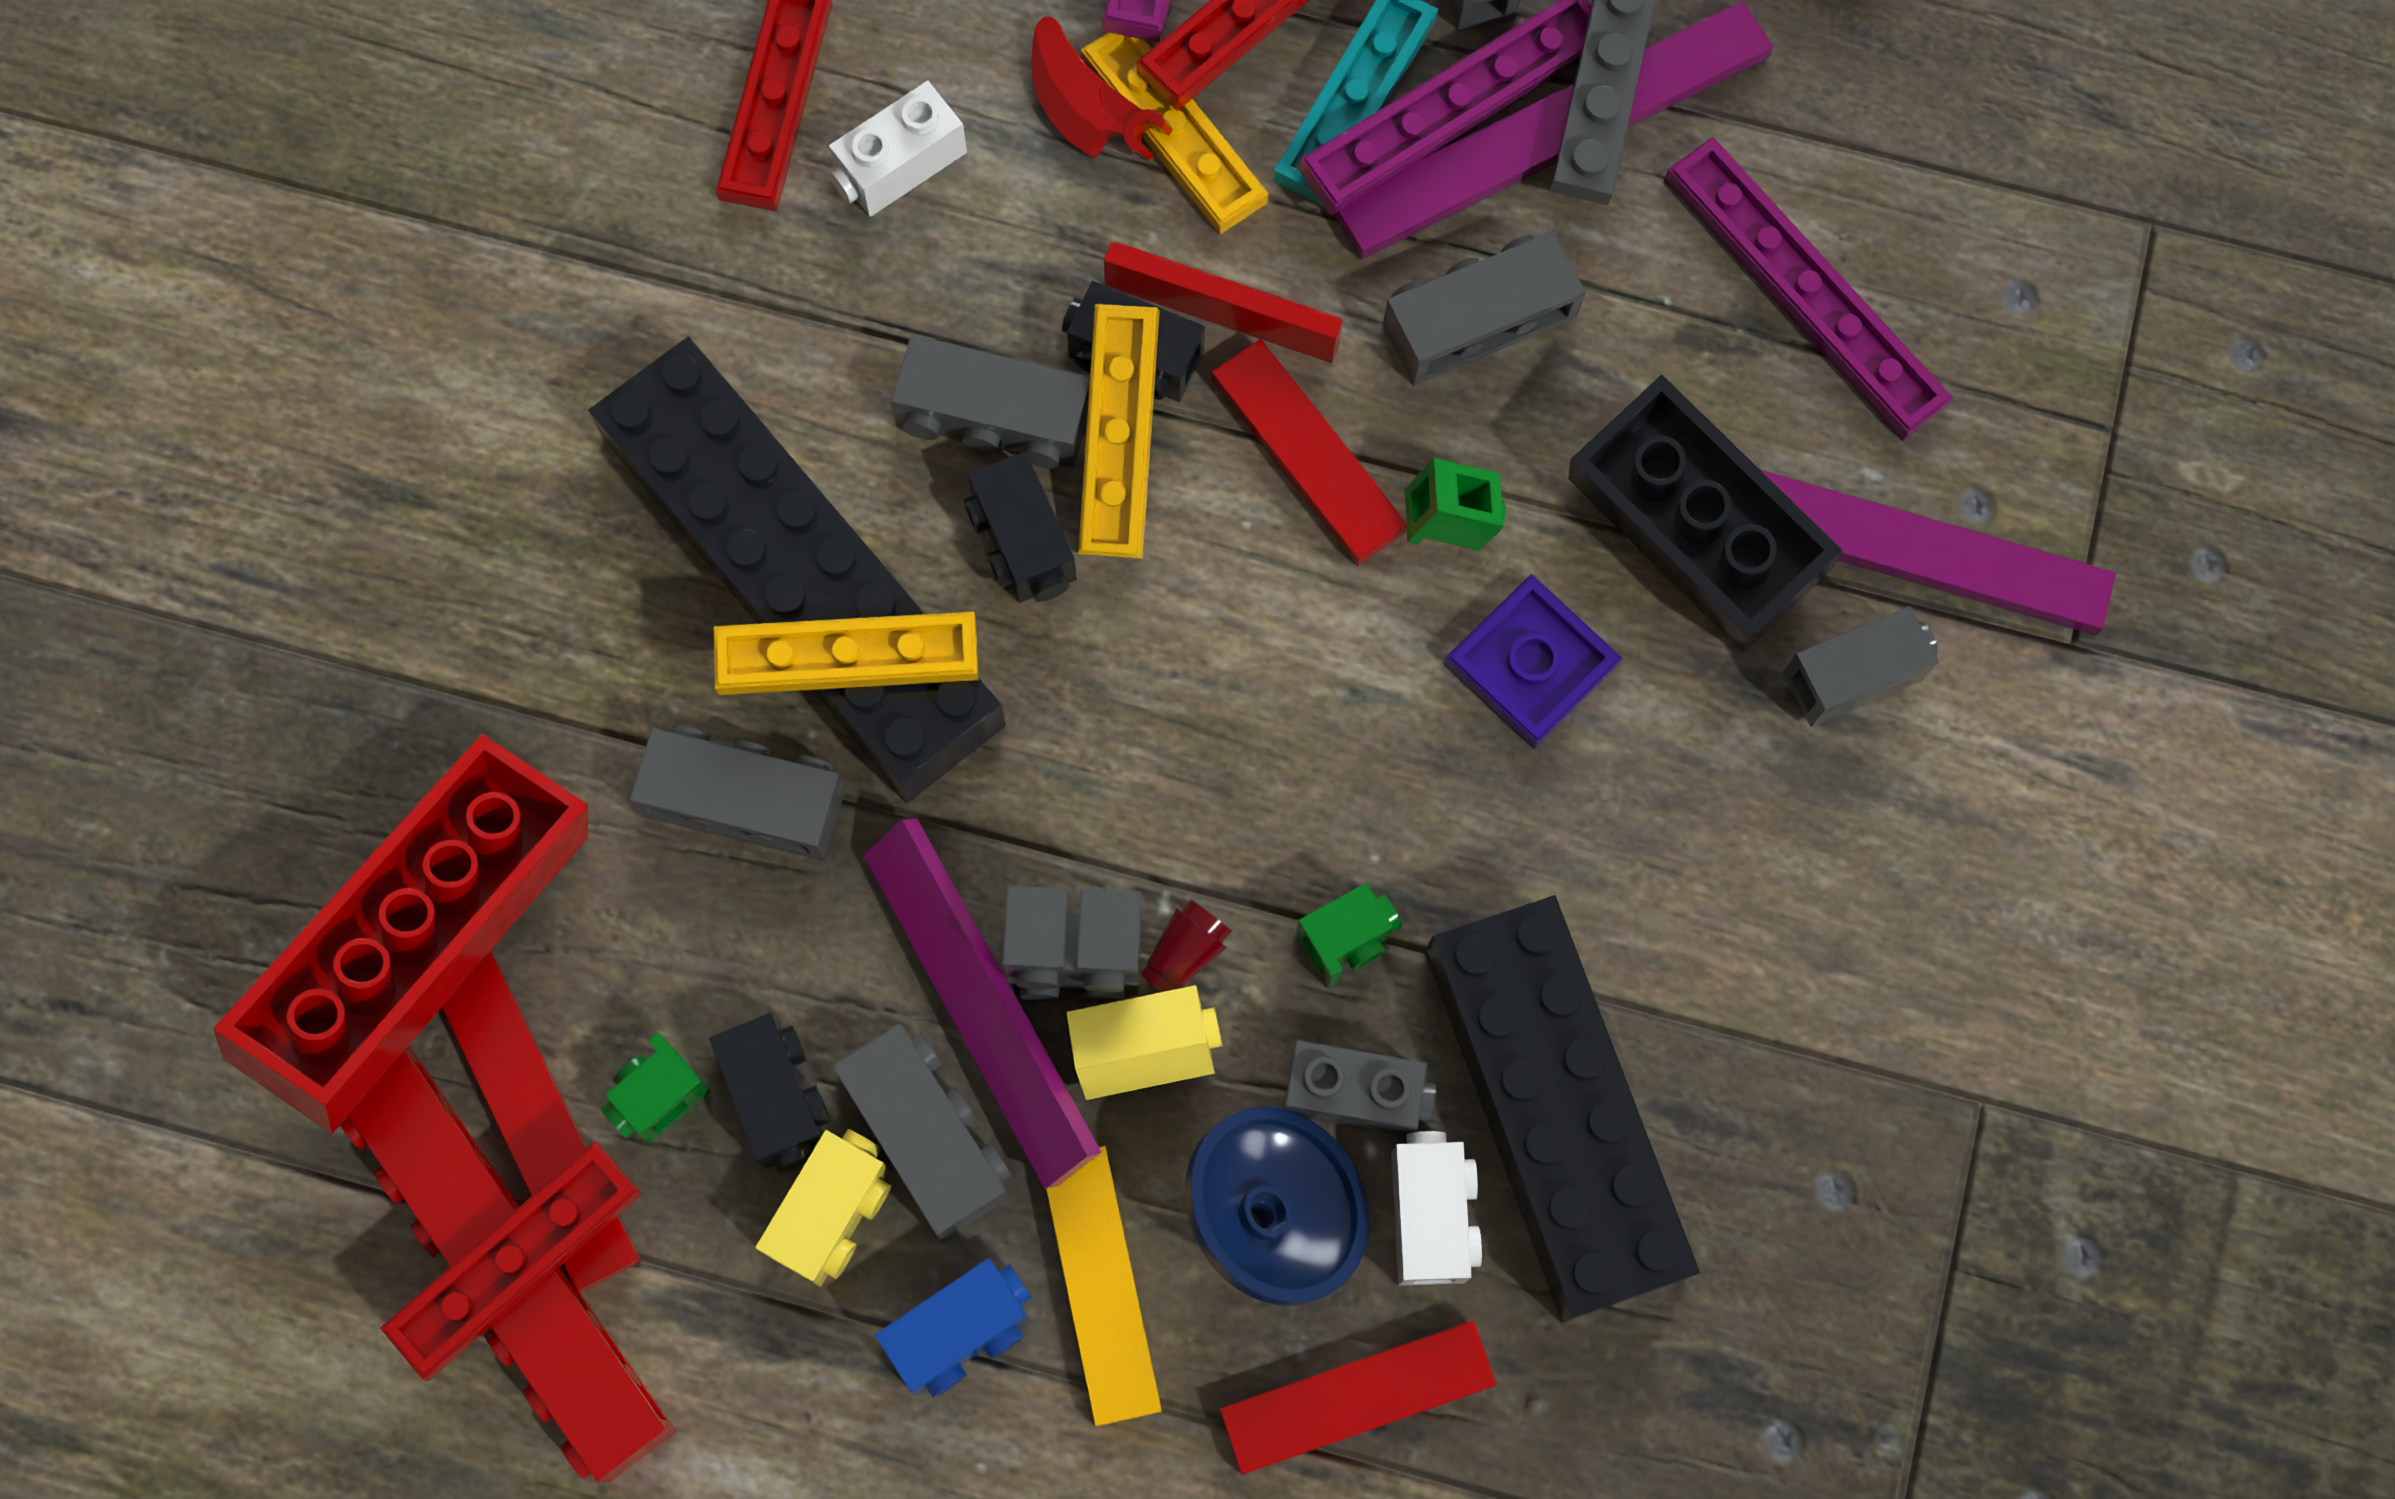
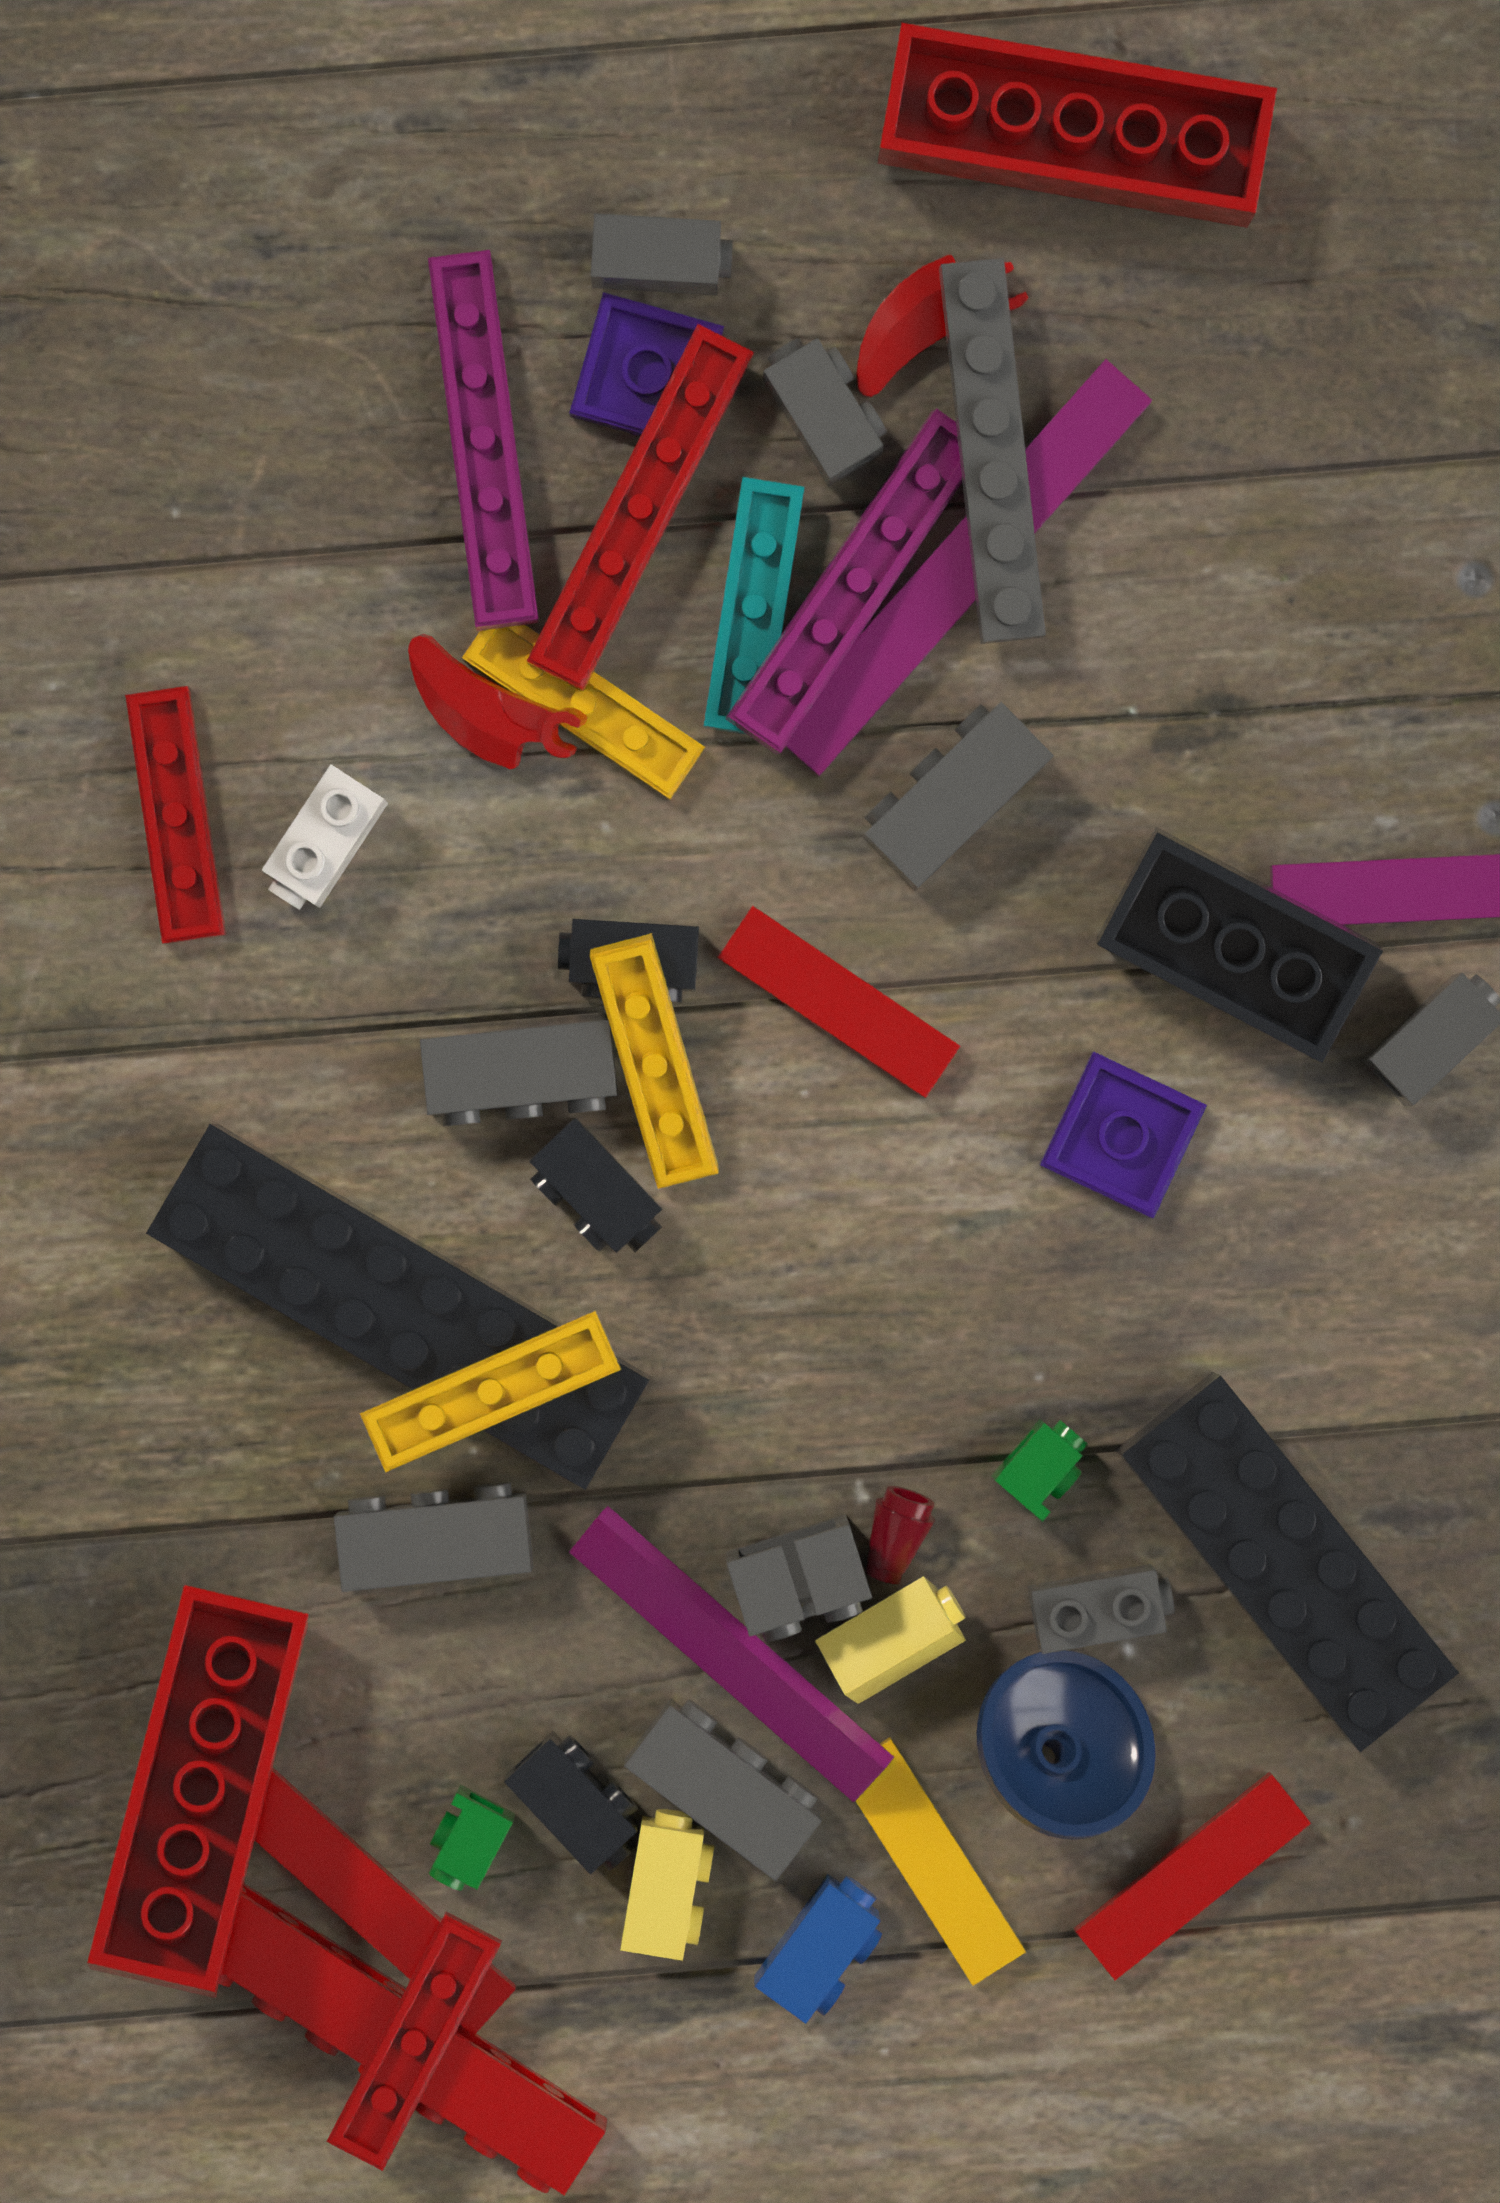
camera: 15 degrees left, 15 degrees up
(1222, 301) = (702, 882): red tile -> none
(1432, 1212) = (1202, 1693): white brick -> none
(1454, 505) = (999, 1015): green brick -> none
(1808, 288) = (1264, 649): magenta tile -> none

